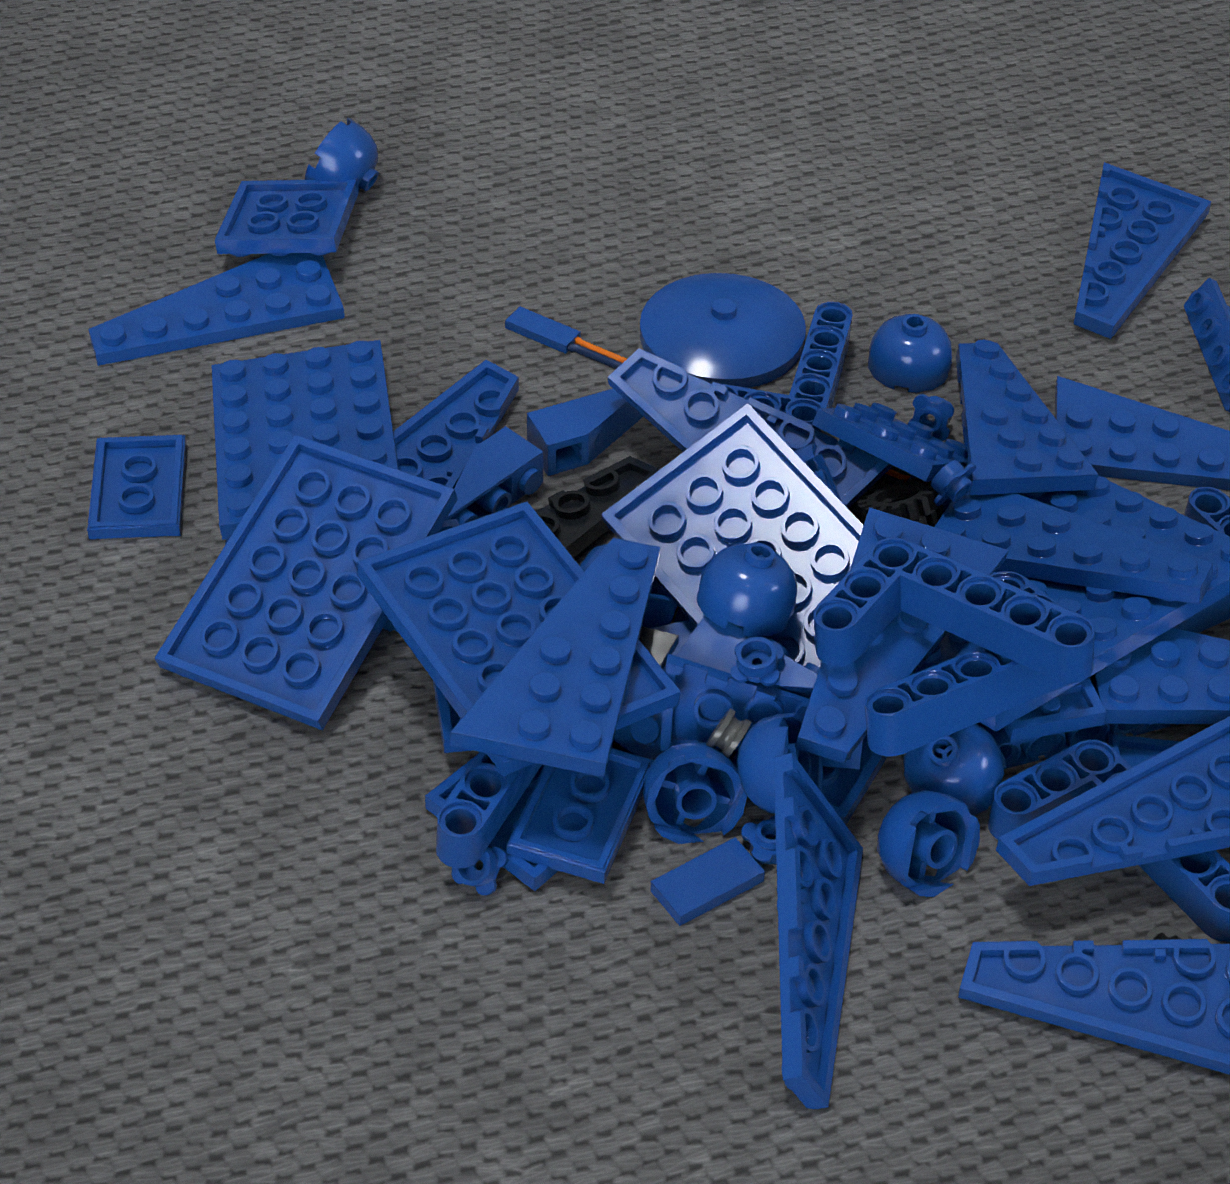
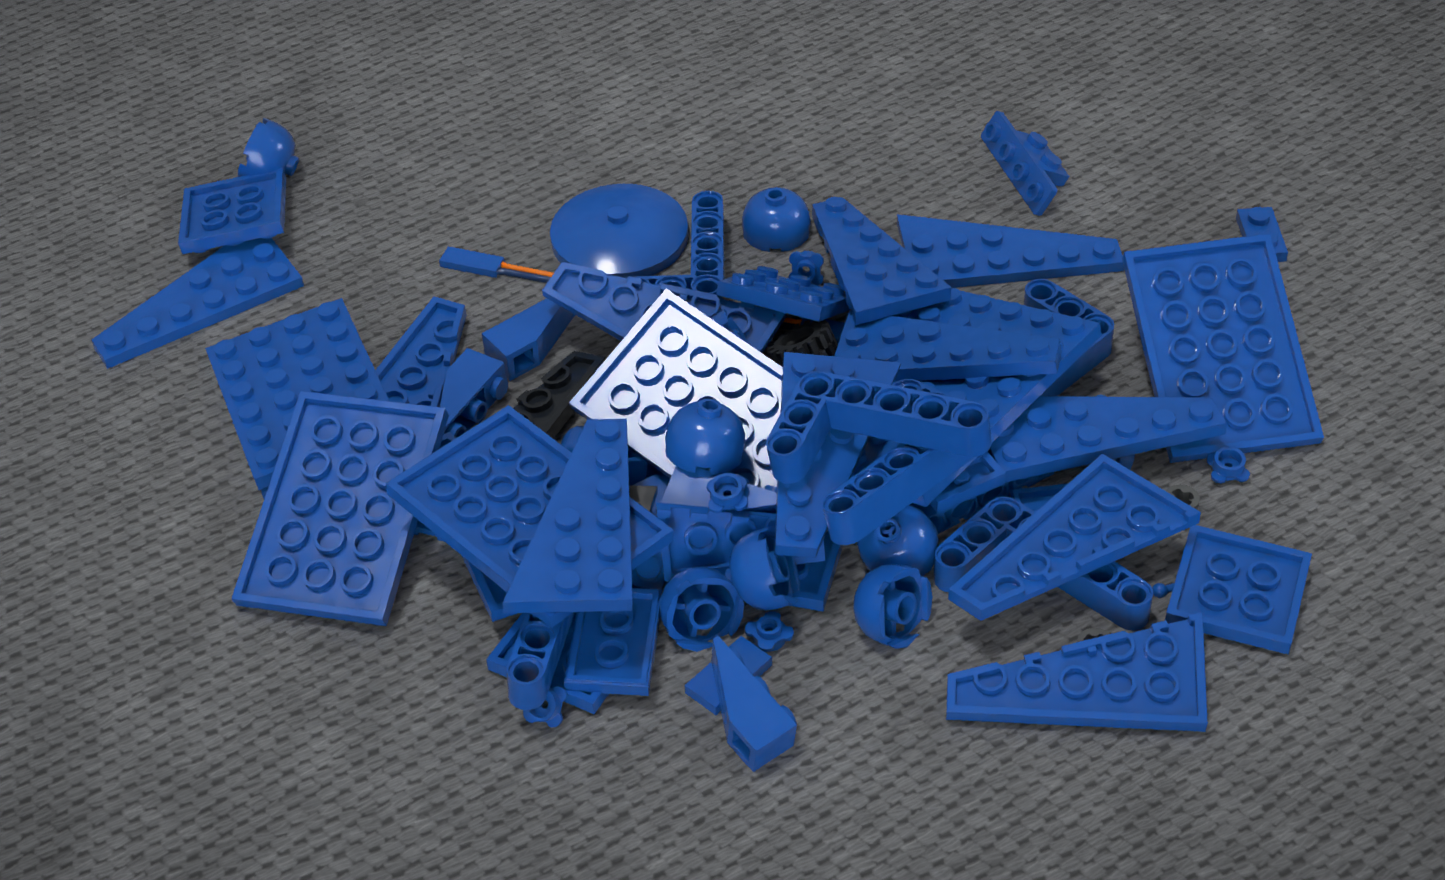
camera: 10 degrees left, 0 degrees up
(137, 487) = (172, 462): blue tile -> none
(719, 939) = (751, 717): none -> blue slope
(728, 733) = (718, 554): dark grey bush -> none
(816, 912) = (822, 680): blue wing -> none
(952, 482) = (840, 317): blue plate -> none
(1131, 243) = (927, 94): blue wing -> none

